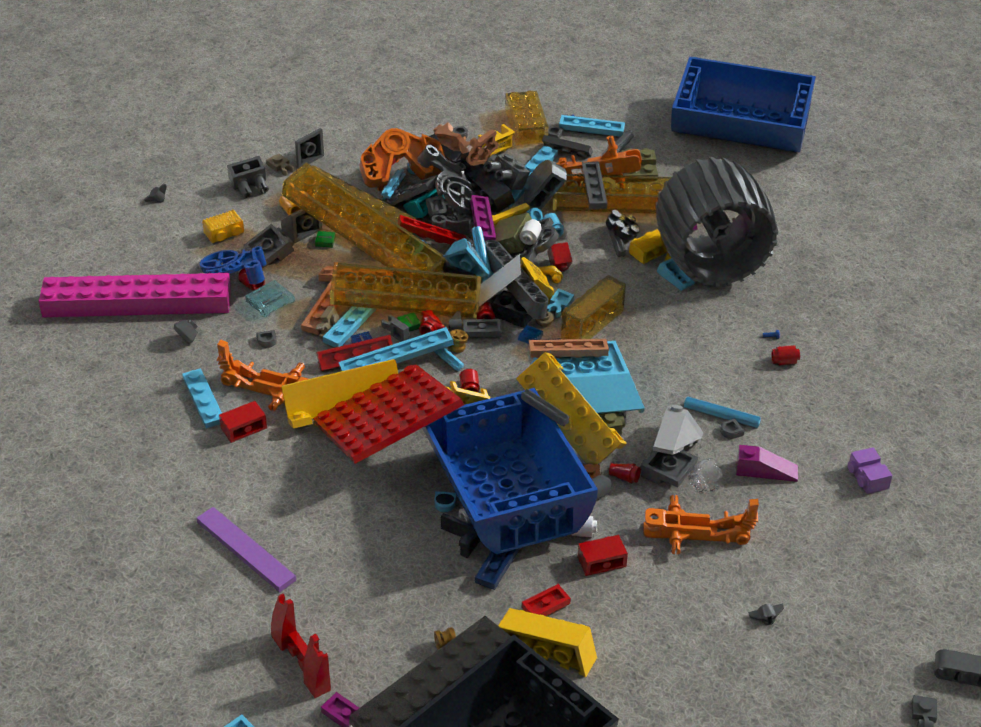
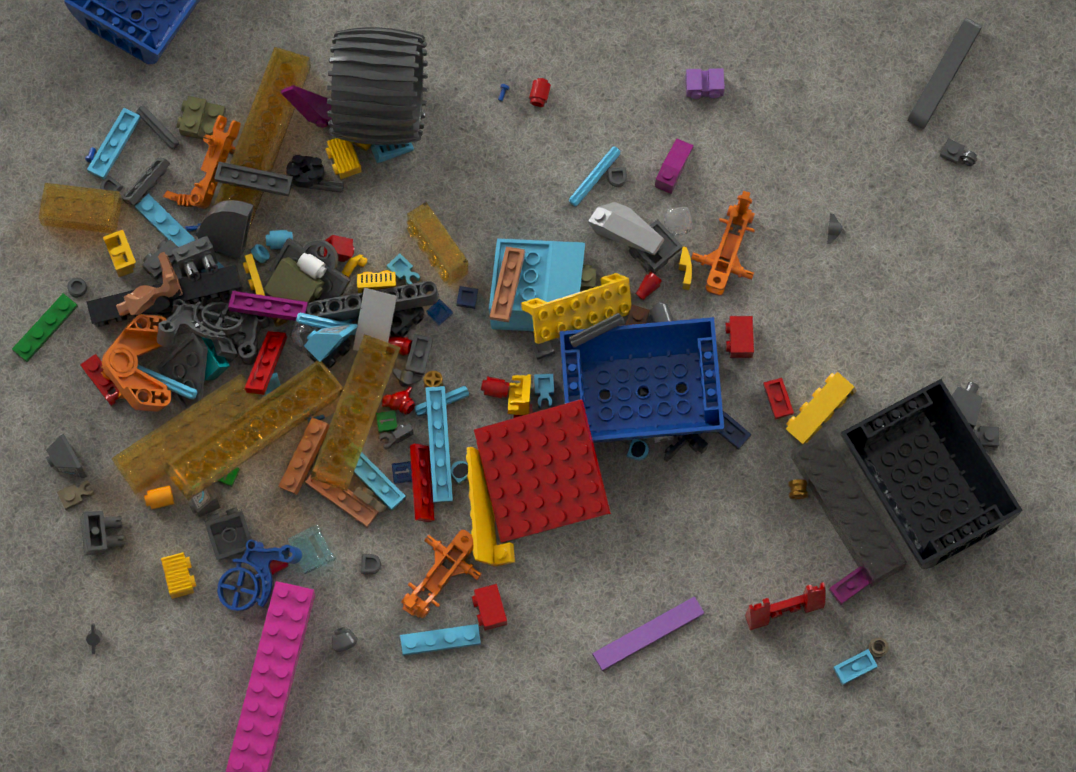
camera: 75 degrees left, 30 degrees up
(412, 122) = (44, 327): none -> green plate
(657, 497) = (685, 265): none -> yellow slope

